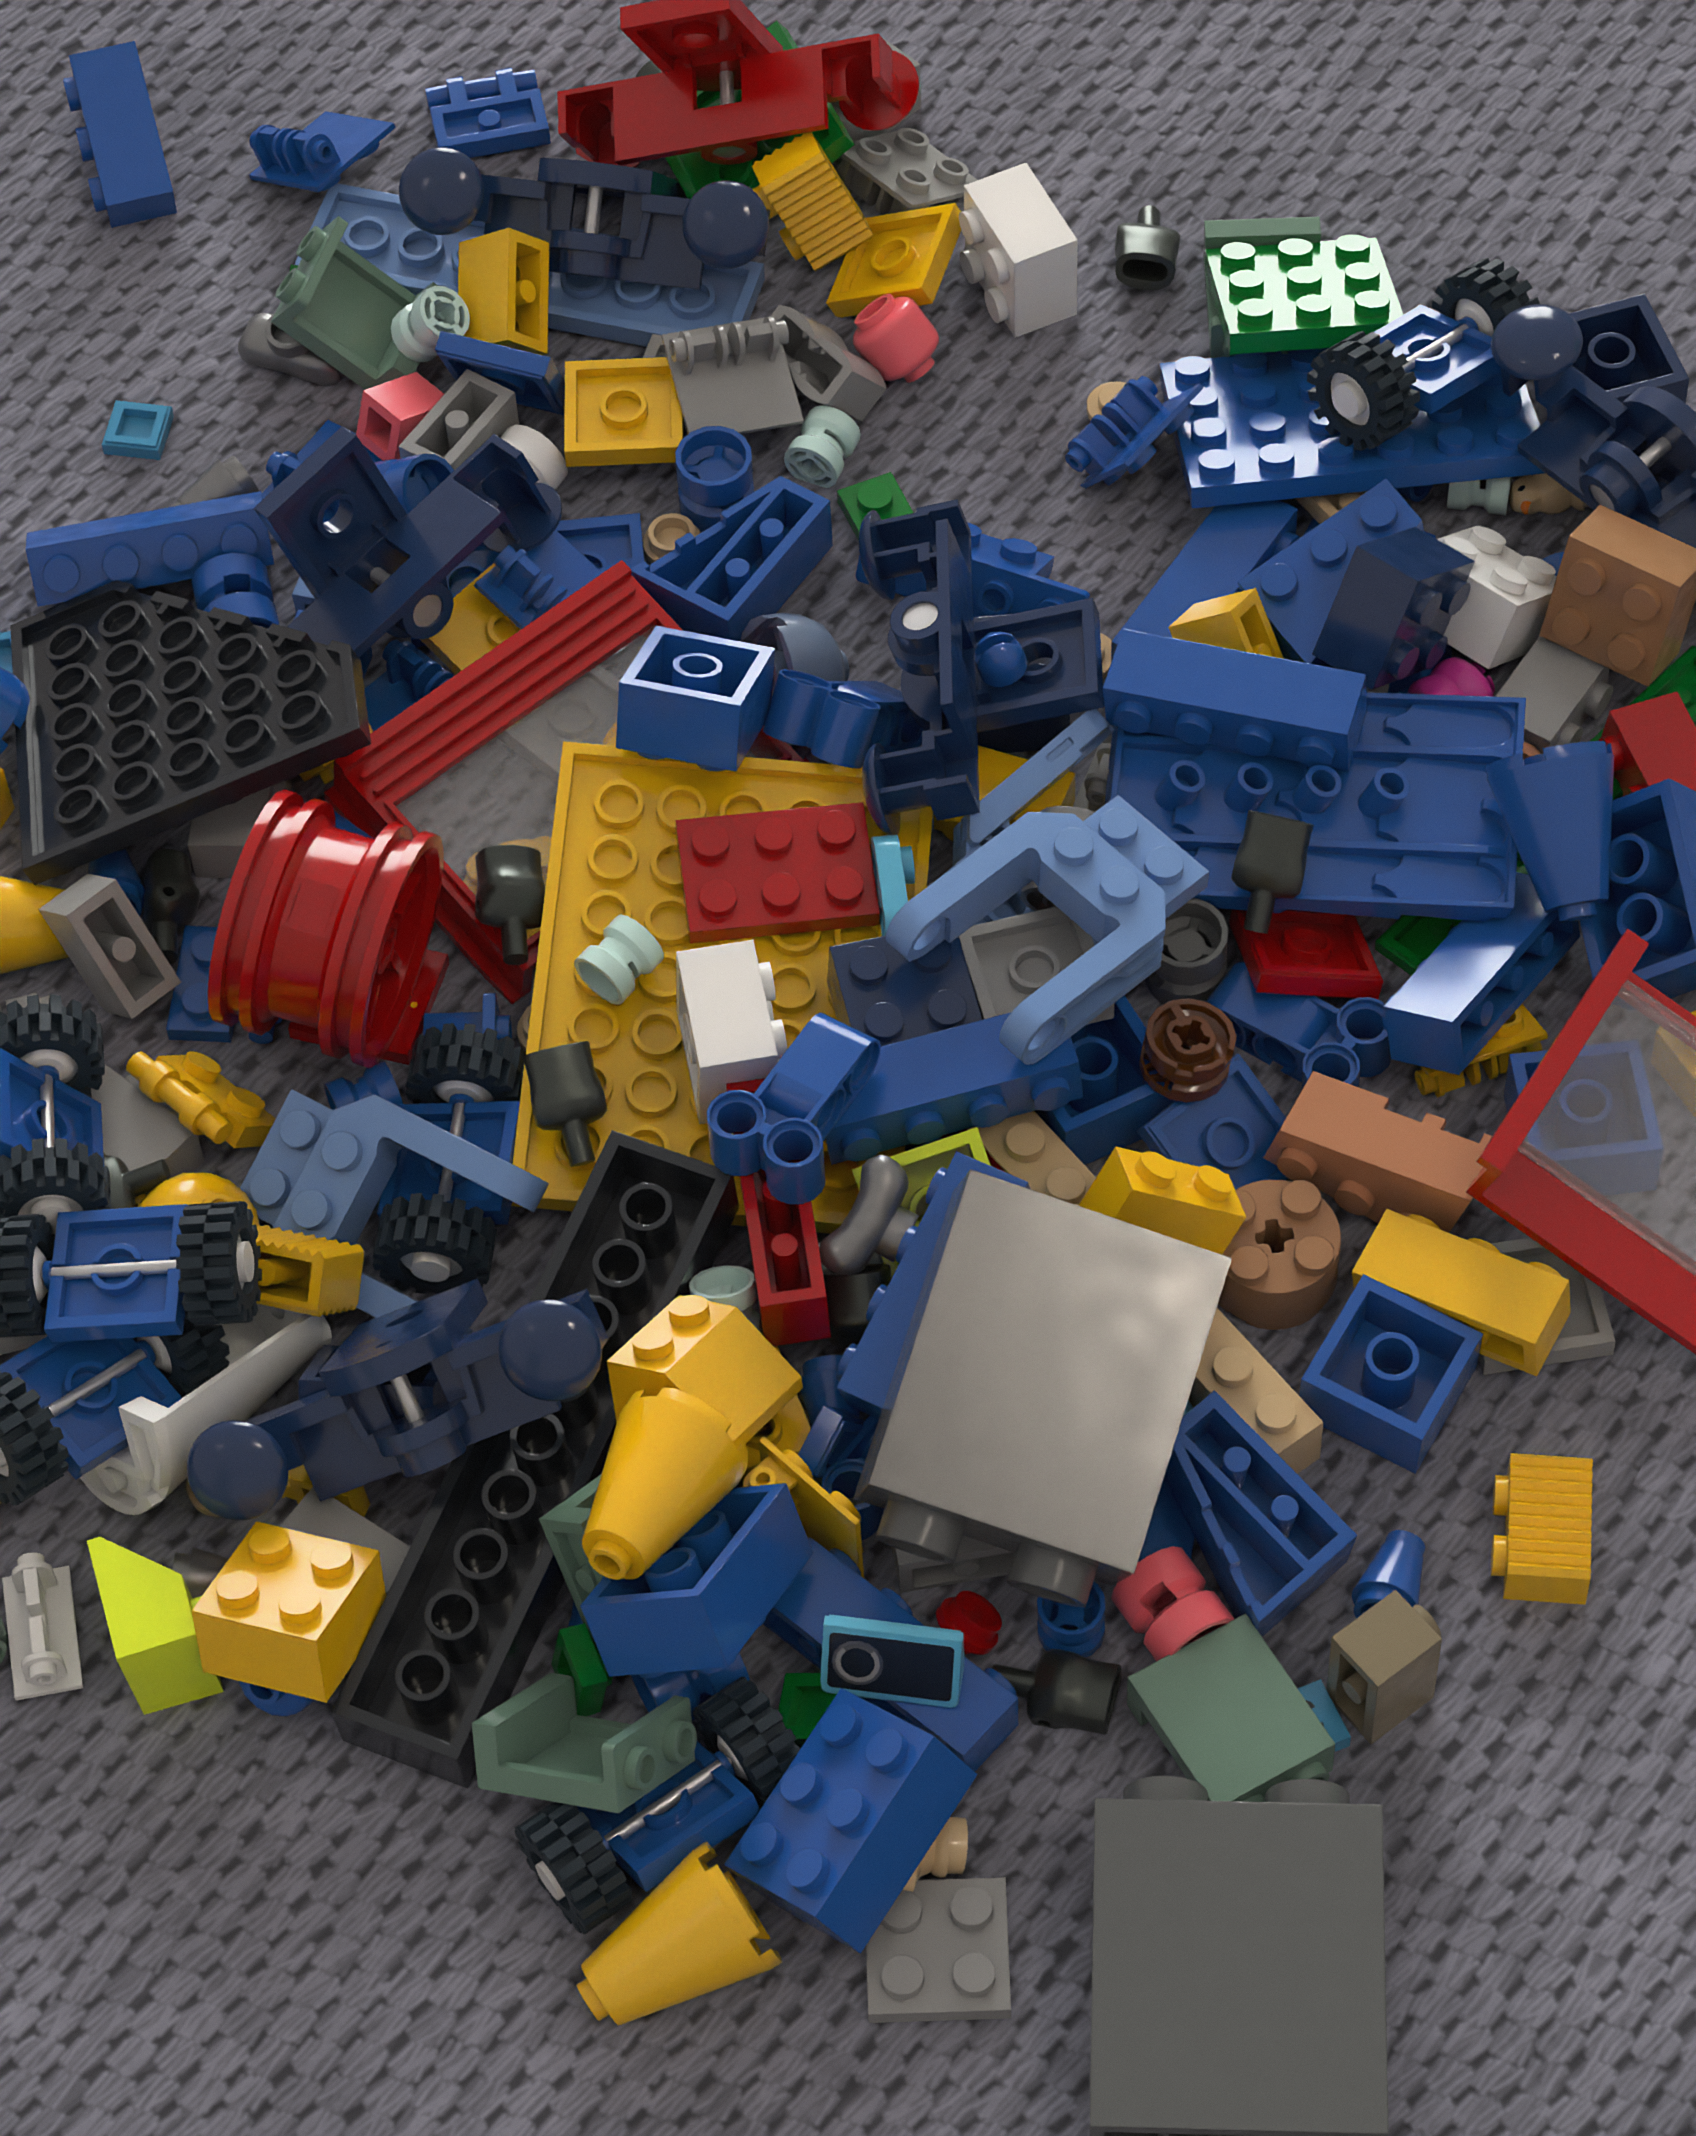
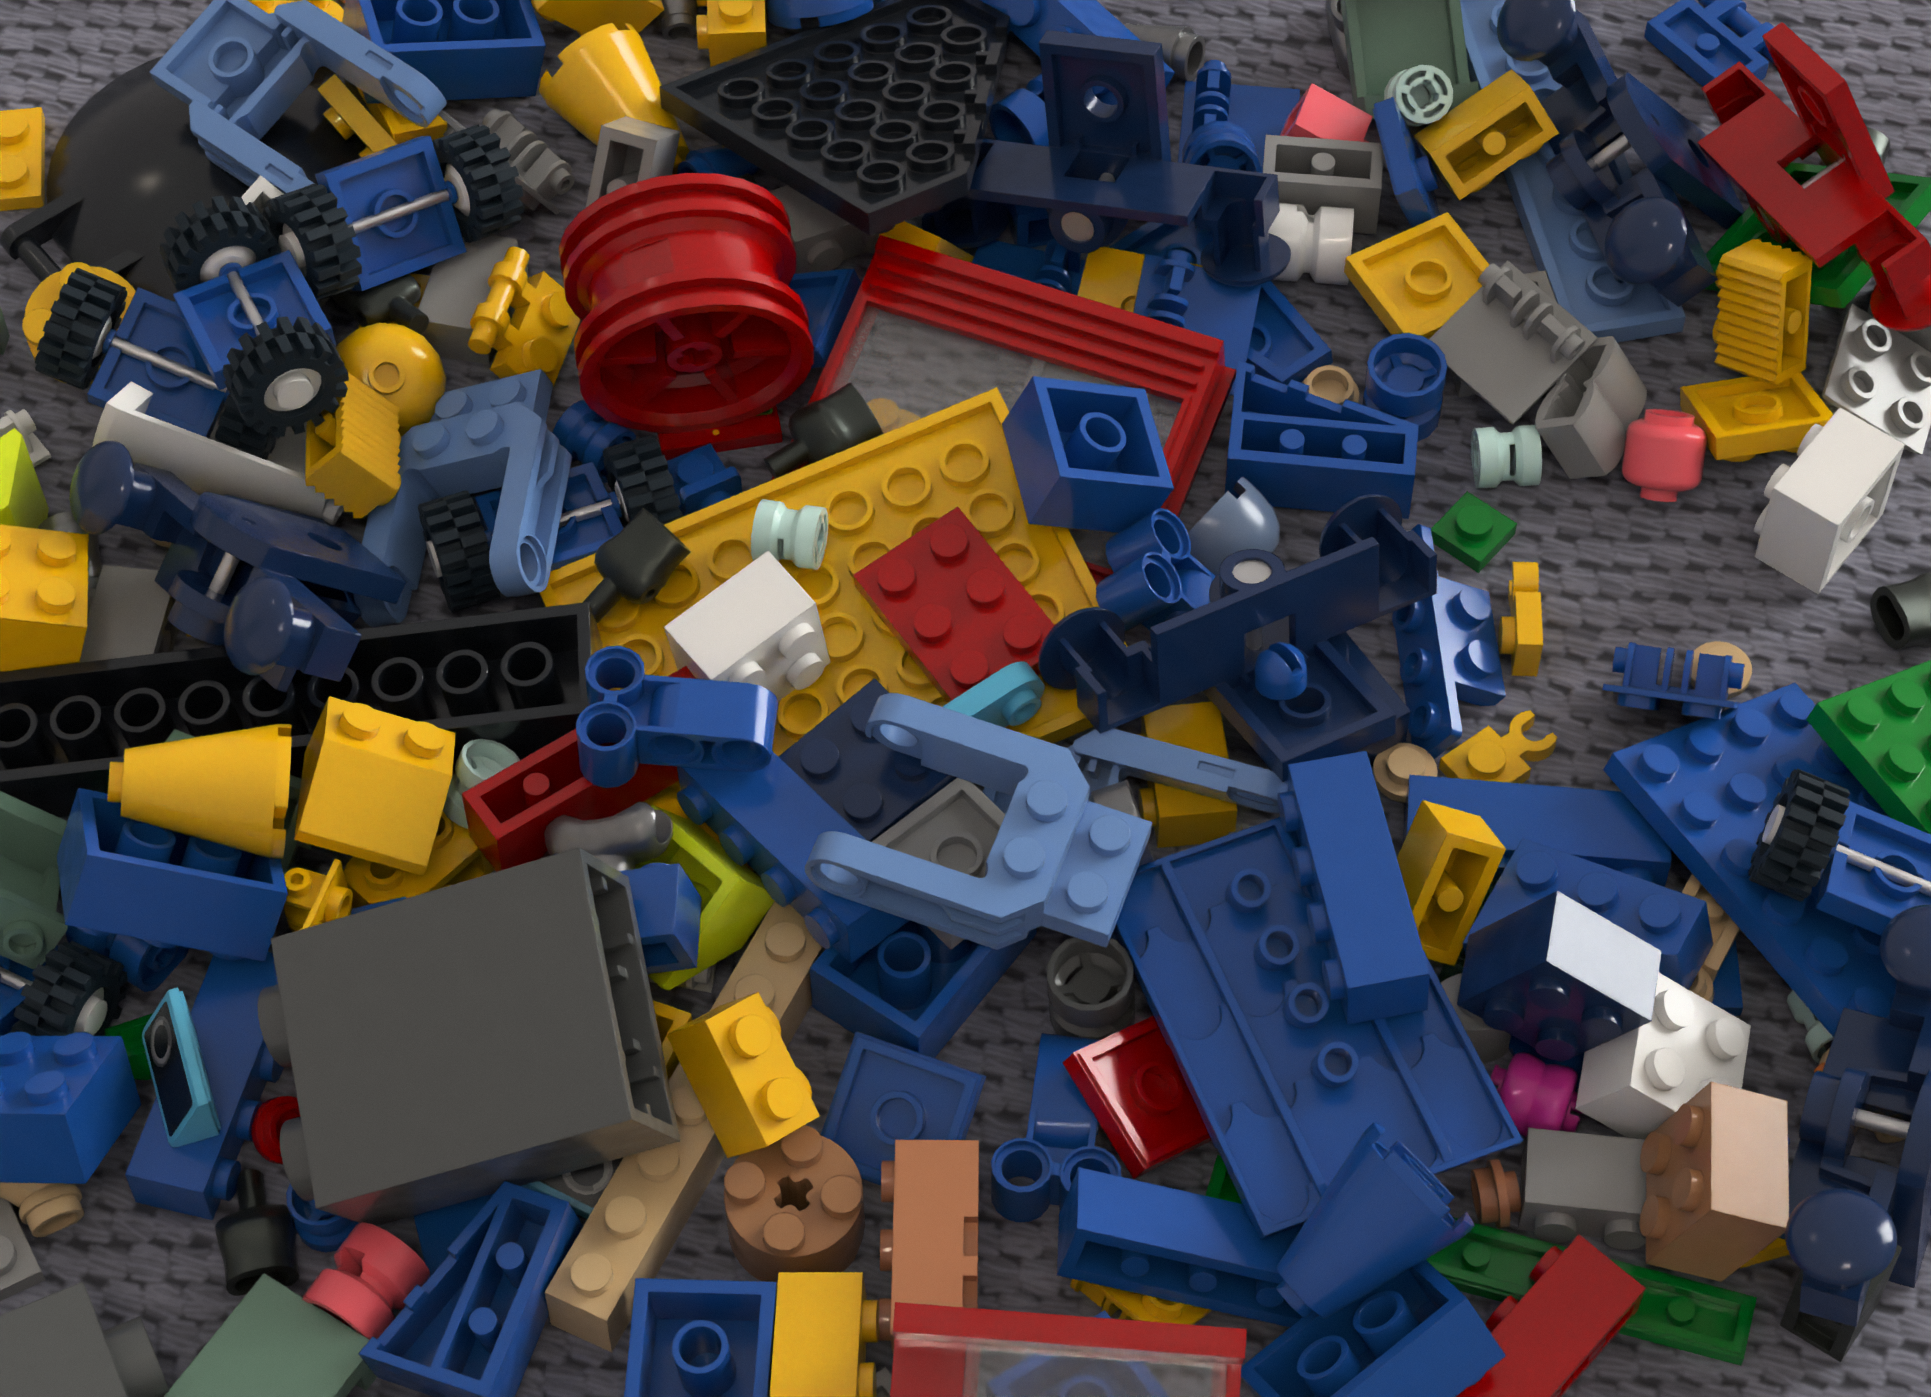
camera: 60 degrees right, 0 degrees up
(998, 507) = (1523, 631): none -> yellow plate
(1114, 592) = (1498, 758): none -> yellow plate
(1195, 1070) = (939, 1021): reddish brown wheel -> none
(1270, 864) = (1186, 997): pearl dark grey piece -> none

